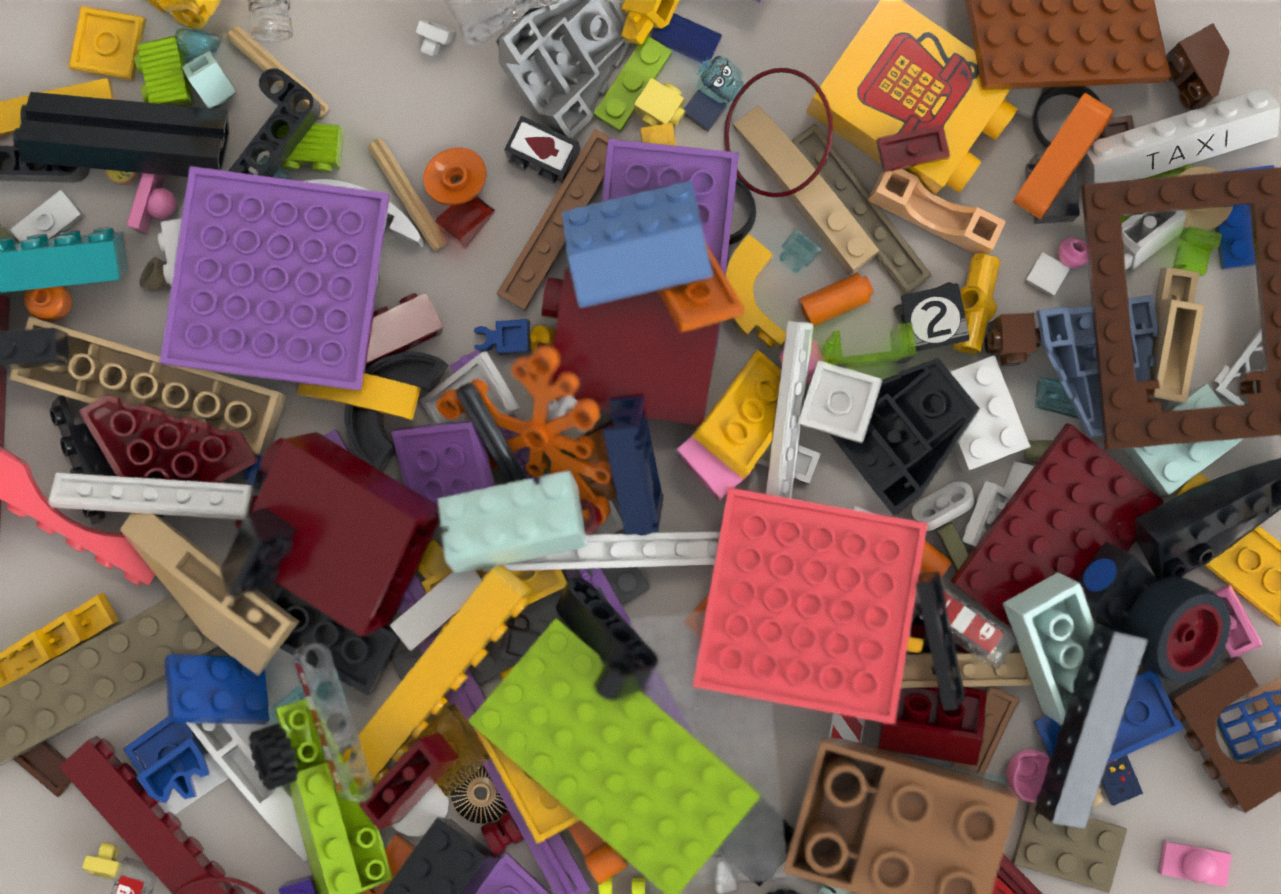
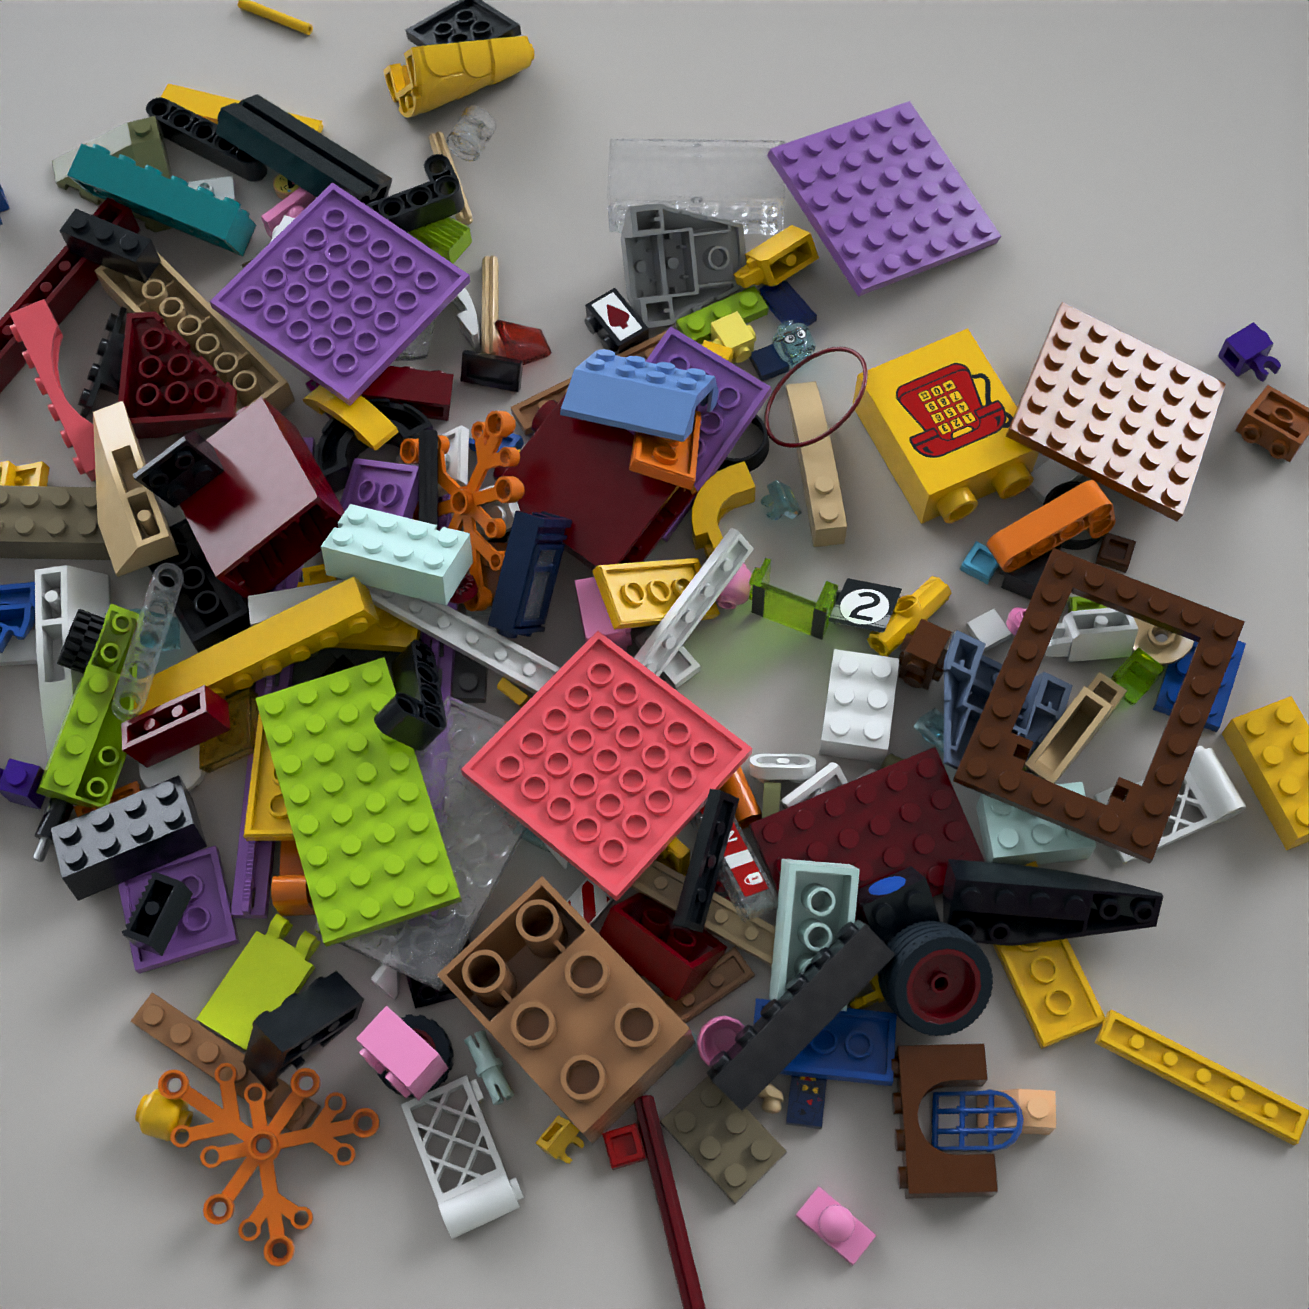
camera: 30 degrees right, 20 degrees down
(48, 303) = (167, 239): orange head -> none
(106, 43) = (339, 101): yellow tile -> none
(151, 496) = (130, 396): white tile -> none
(163, 73) = (367, 133): lime brick -> none
(196, 43) = (402, 129): clear light blue brick -> none
(209, 80) = (394, 154): light aqua brick -> none
(214, 691) = (76, 571): blue plate -> none
(435, 35) = (585, 208): white tile -> none
(451, 166) = (535, 308): orange dish -> none
(454, 264) = (491, 370): none -> black tile
(478, 809) = (223, 802): dish -> none
(501, 833) = (222, 828): dark red wheel -> none
(676, 573) = (512, 692): none -> yellow tile
(836, 299) = (790, 553): orange brick -> none
(840, 401) = (739, 620): white plate -> none
(894, 251) = (861, 532): dark tan tile -> none
(911, 432) = (779, 670): black wedge -> none
(913, 148) = (918, 448): dark red plate -> none
(961, 225) = (895, 500): light nougat arch -> none
(1003, 207) = (980, 563): none -> medium azure tile
(1183, 139) = (1205, 582): white brick -> none
(1198, 67) = (1213, 522): reddish brown slope -> none
(1242, 632) = (996, 1022): bright pink brick -> none

